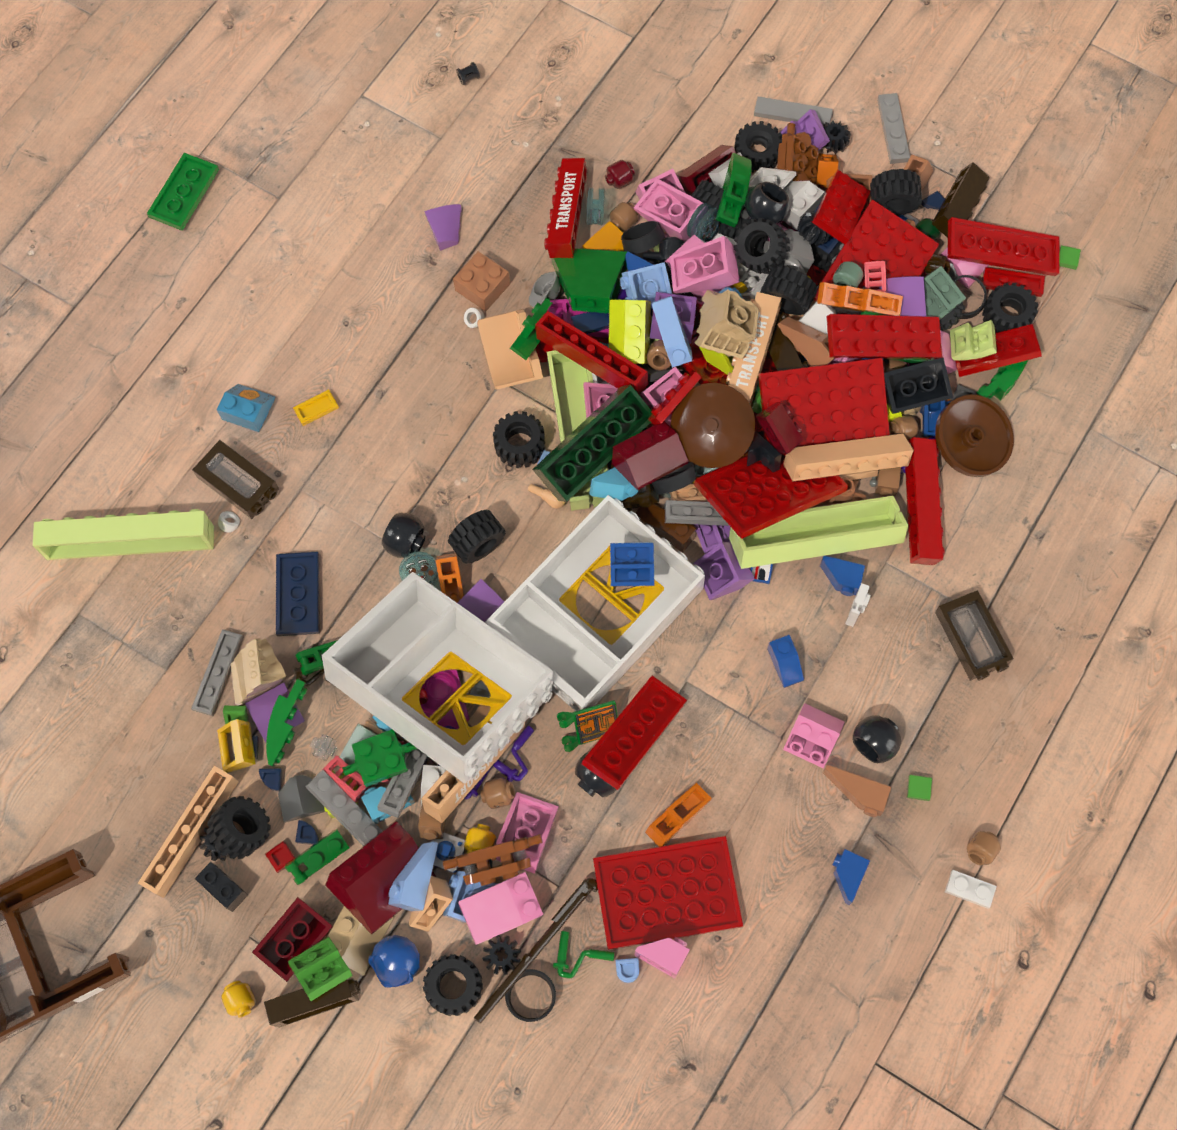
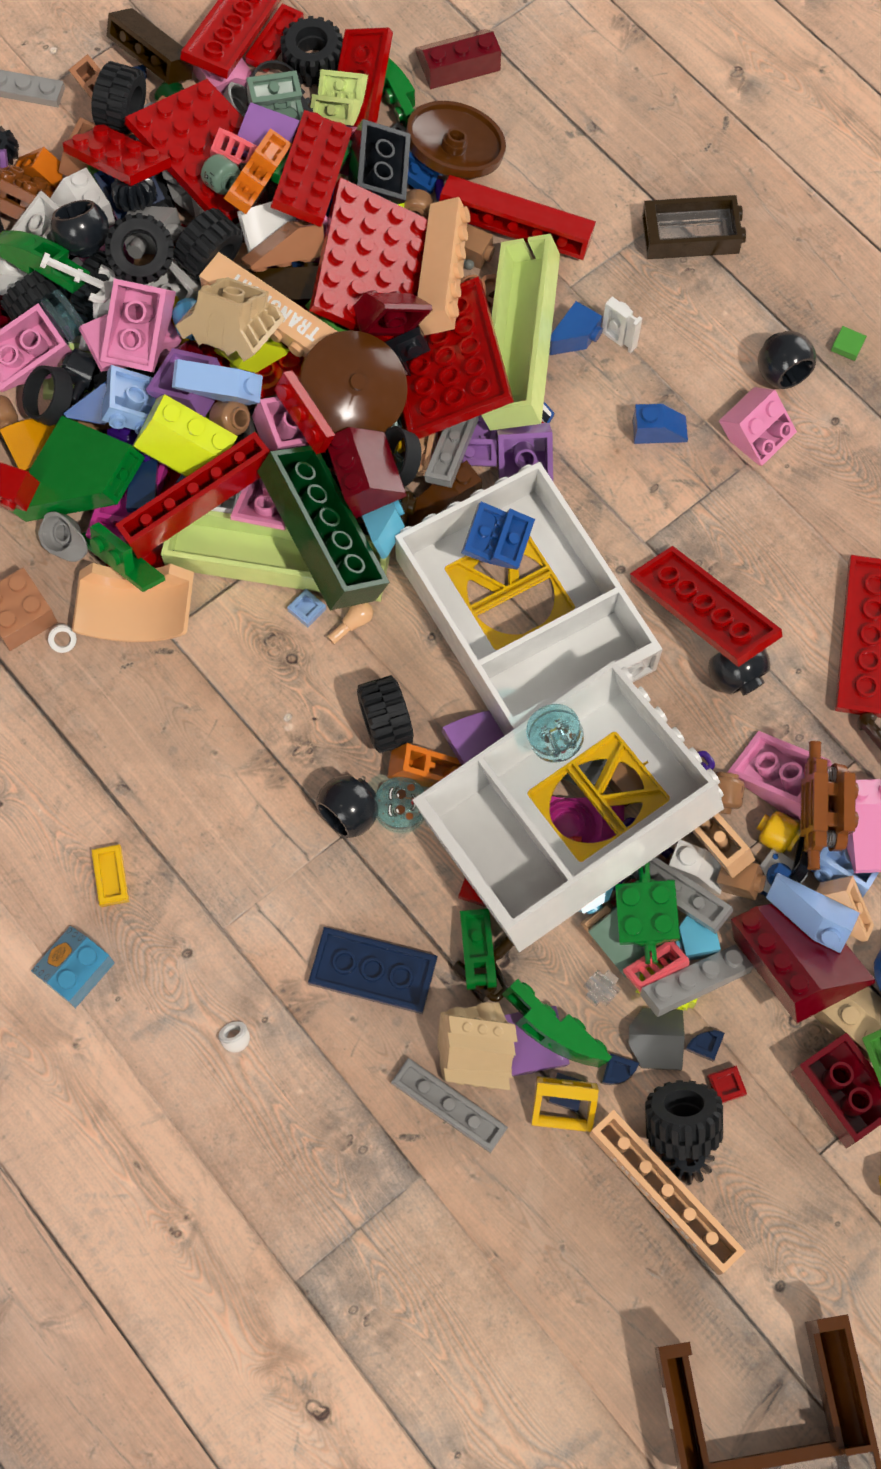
camera: 75 degrees left, 0 degrees up
(123, 535) = (209, 1180): yellowish green piece -> none
(221, 886) = (750, 1168): black brick -> none
(235, 712) = (521, 1093): bright green tile -> none
(236, 479) = (179, 1007): dark brown piece -> none
(317, 856) = (742, 1036): green plate -> none
(480, 645) = (555, 733): none -> clear light blue head
(514, 425) = (259, 609): black tyre -> none
(589, 724) = (674, 658): flag -> none
(678, 815) = (811, 599): orange slope -> none
(727, 216) = (79, 275): none -> white piece
(862, 792) = (838, 400): nougat slope -> none
(935, 262) = (235, 91): dark brown gear -> none
(1056, 416) = (460, 58): none -> dark red slope

